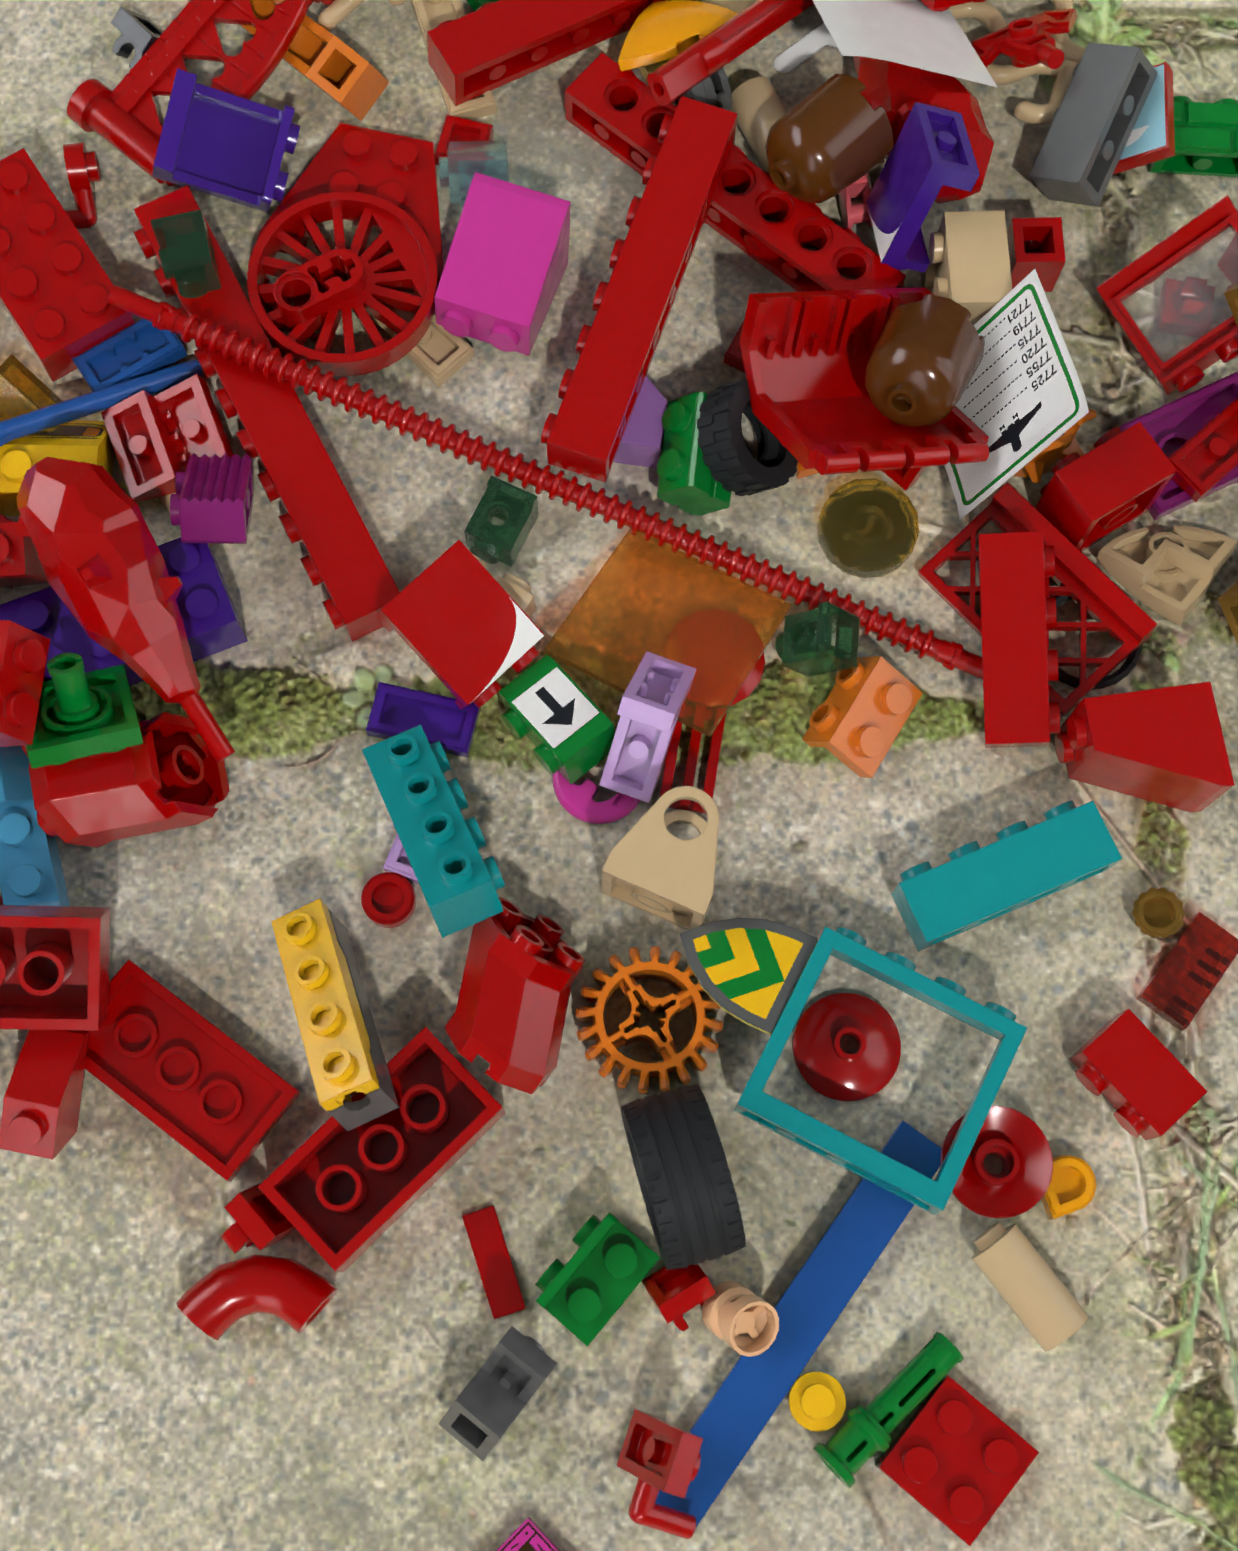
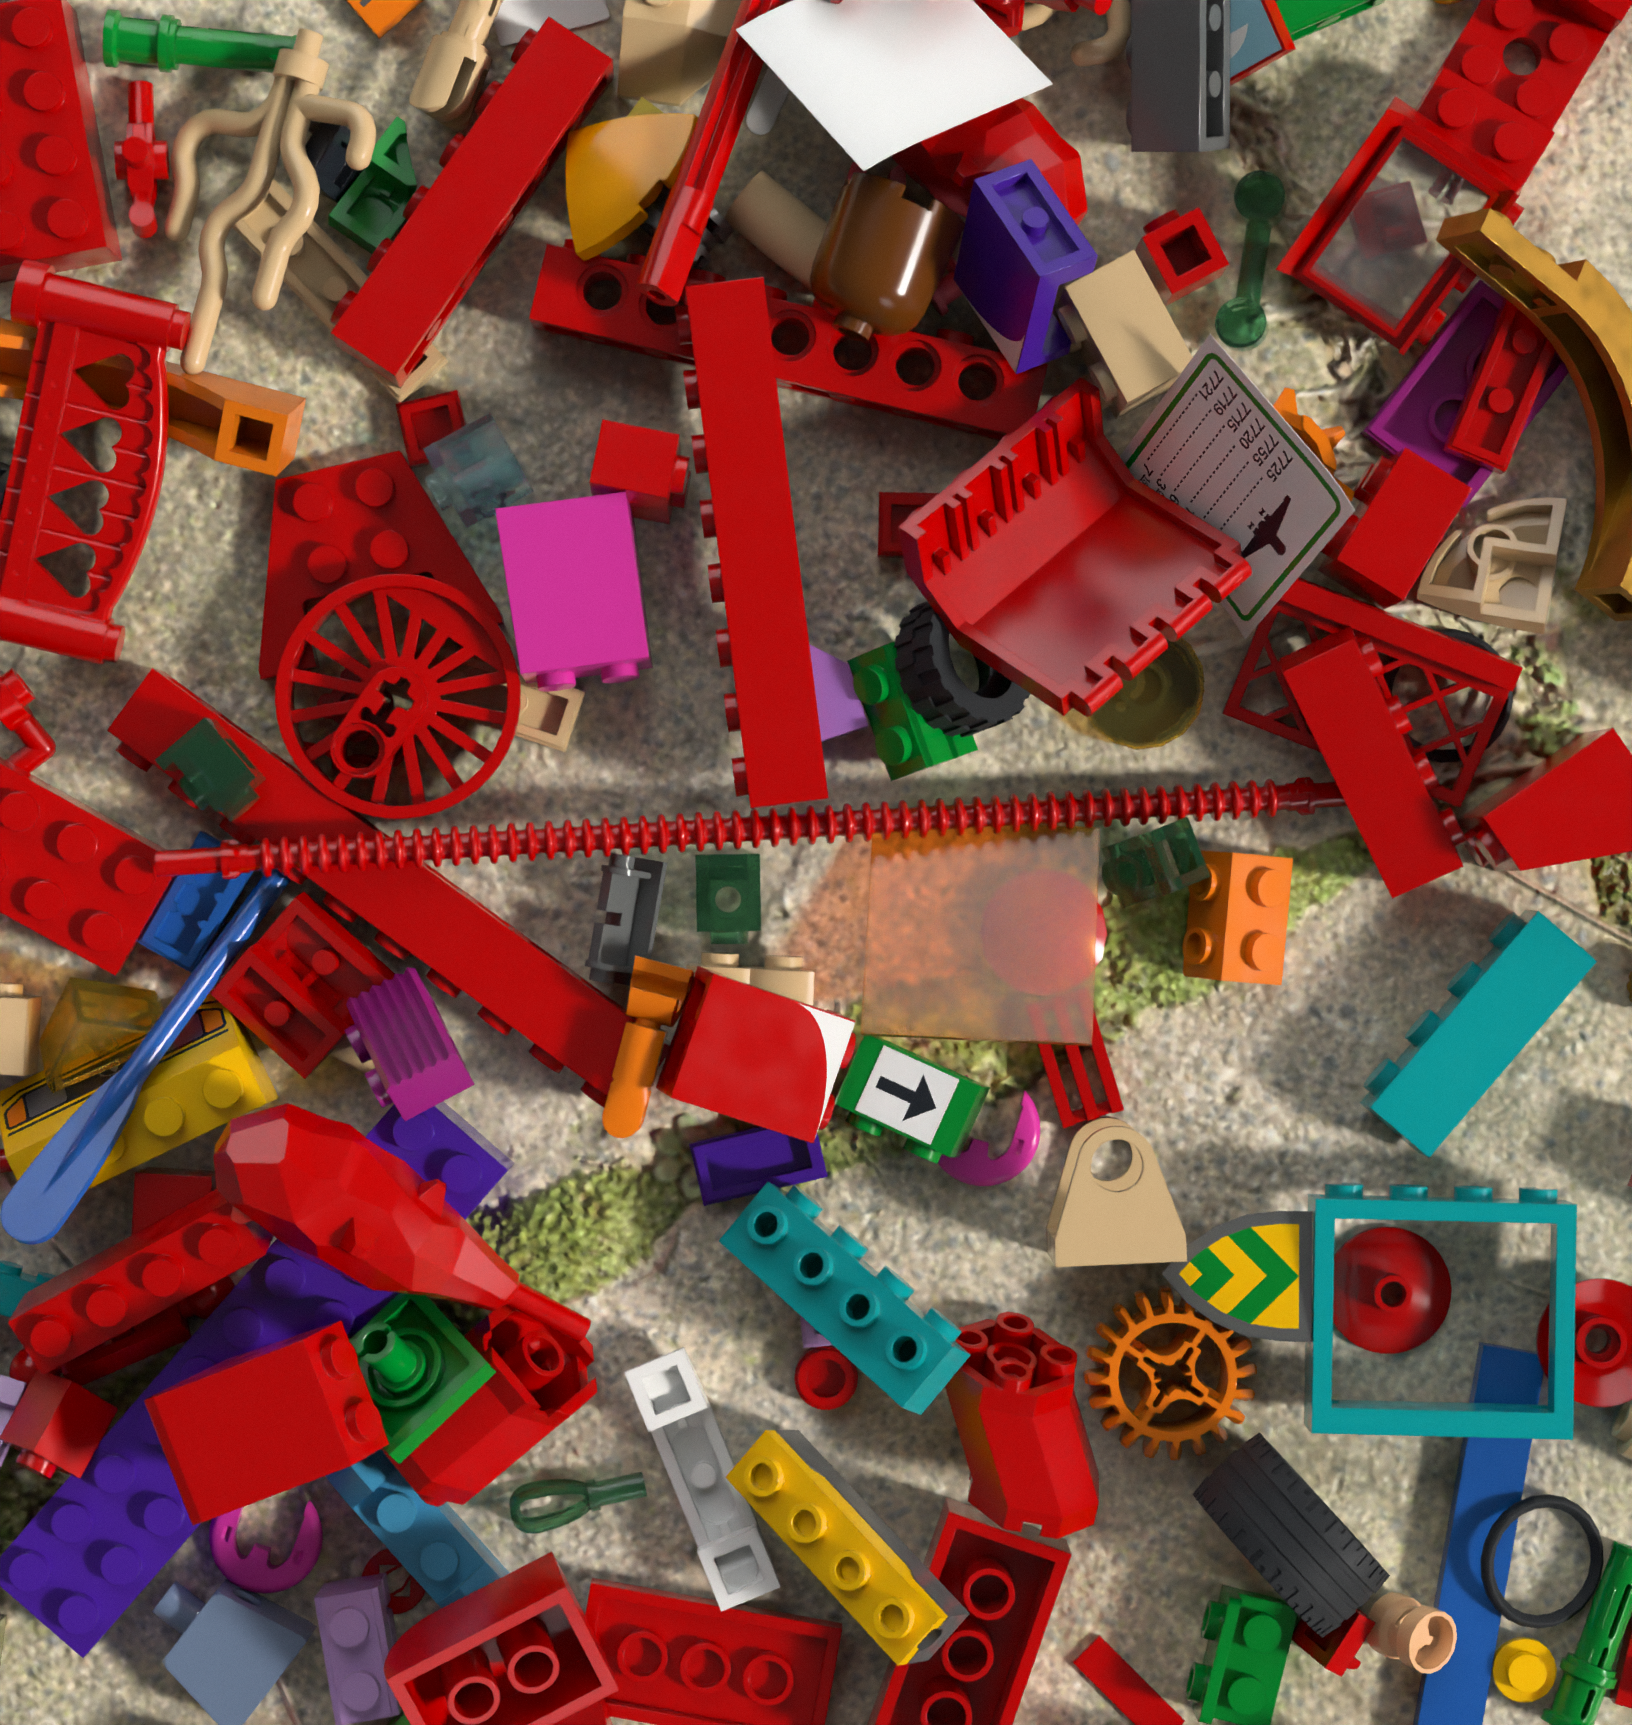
camera: 25 degrees left, 15 degrees up
(169, 901) = (594, 1493): none -> clear green piece
(224, 144) = (166, 590): dark purple panel -> none
(261, 894) = (697, 1465): none -> white slope
(404, 521) = (632, 898): none -> dark grey hinge
(405, 550) = (655, 1000): none -> orange piece
(595, 210) = (643, 465): none -> red piece
(646, 725) = (1018, 1062): lavender bracket -> none
(822, 1311) = (1494, 1536): none -> black tyre
(923, 361) = (1127, 497): reddish brown cylinder -> none
(1101, 260) = (1262, 205): none -> clear green bar

